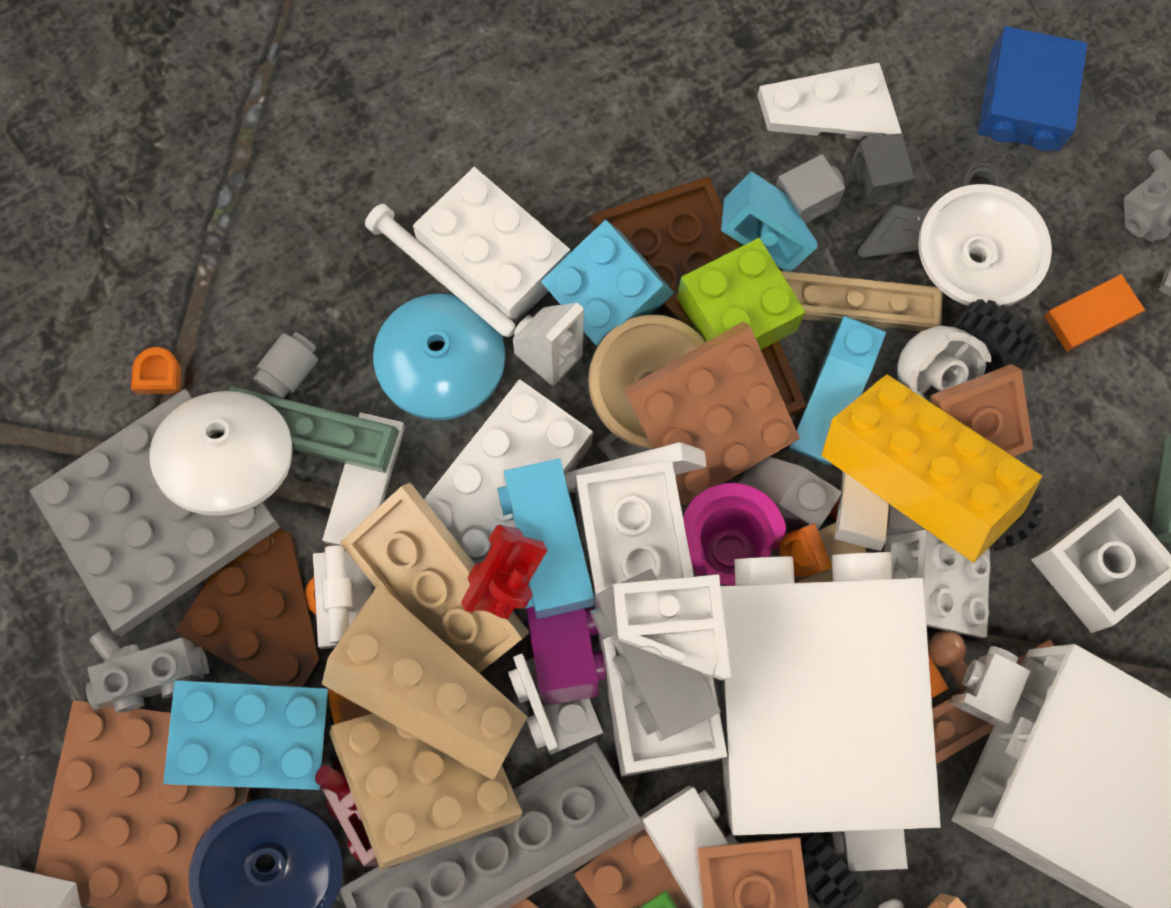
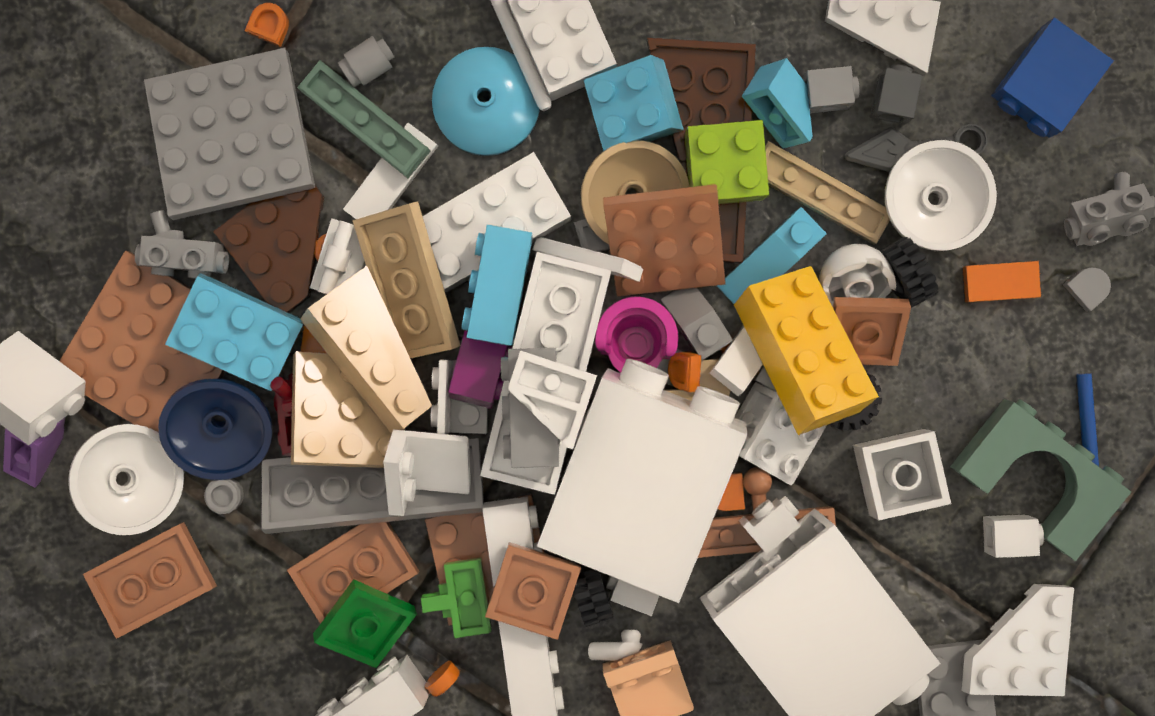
camera: 25 degrees right, 15 degrees up
(227, 471) = (294, 134): white dish -> none
(504, 575) = (455, 302): red hips -> none
(551, 340) = (570, 129): white slope -> none
(551, 794) = (424, 463): none -> white bracket

